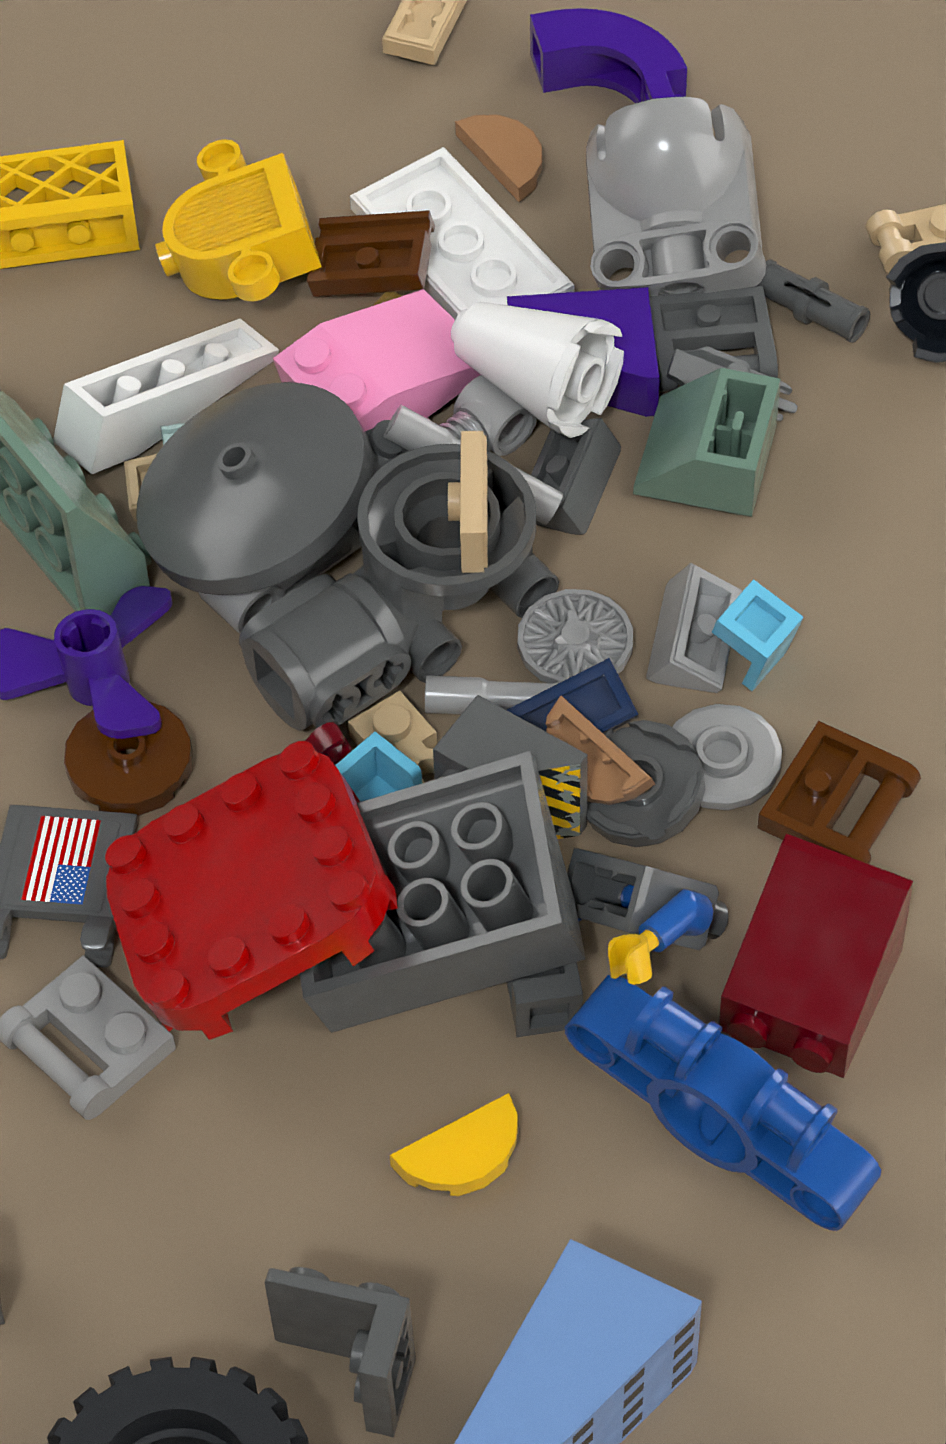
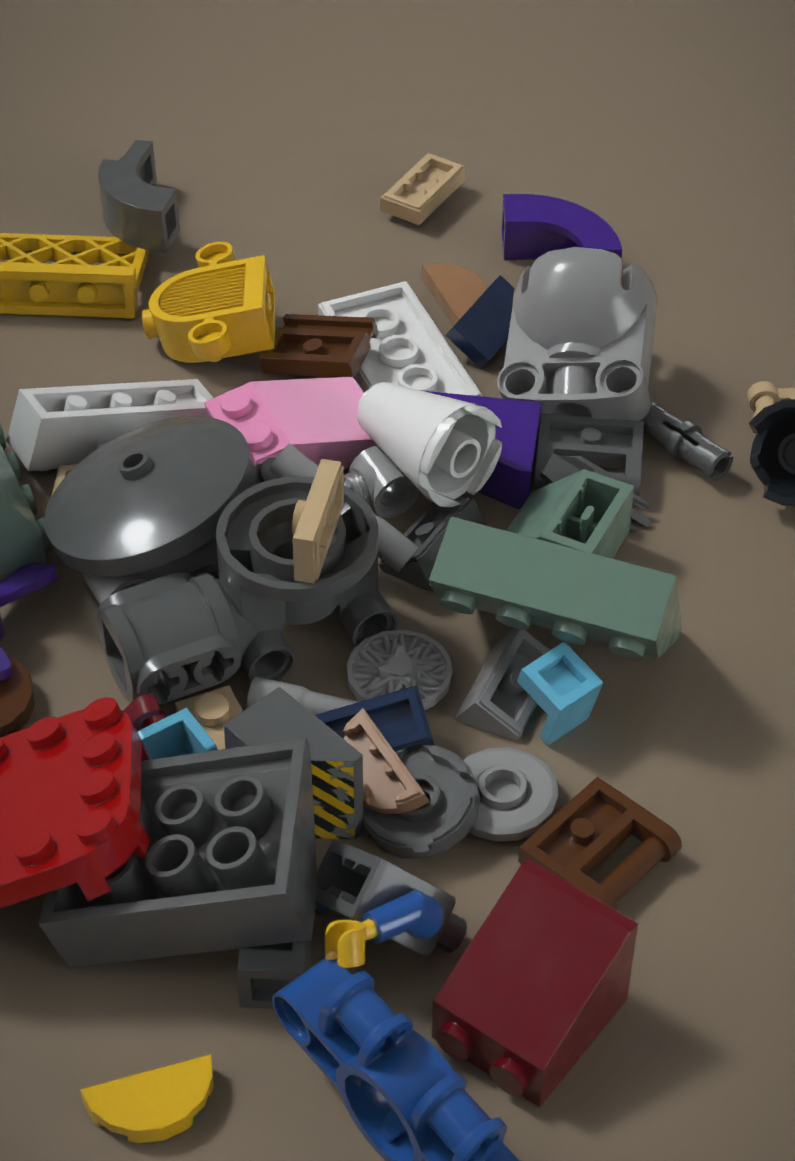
camera: 10 degrees right, 10 degrees down
(93, 107) = (132, 204): none -> dark grey arch
(553, 186) = (485, 323): none -> dark blue tile
(732, 525) = (557, 589): none -> sand green slope

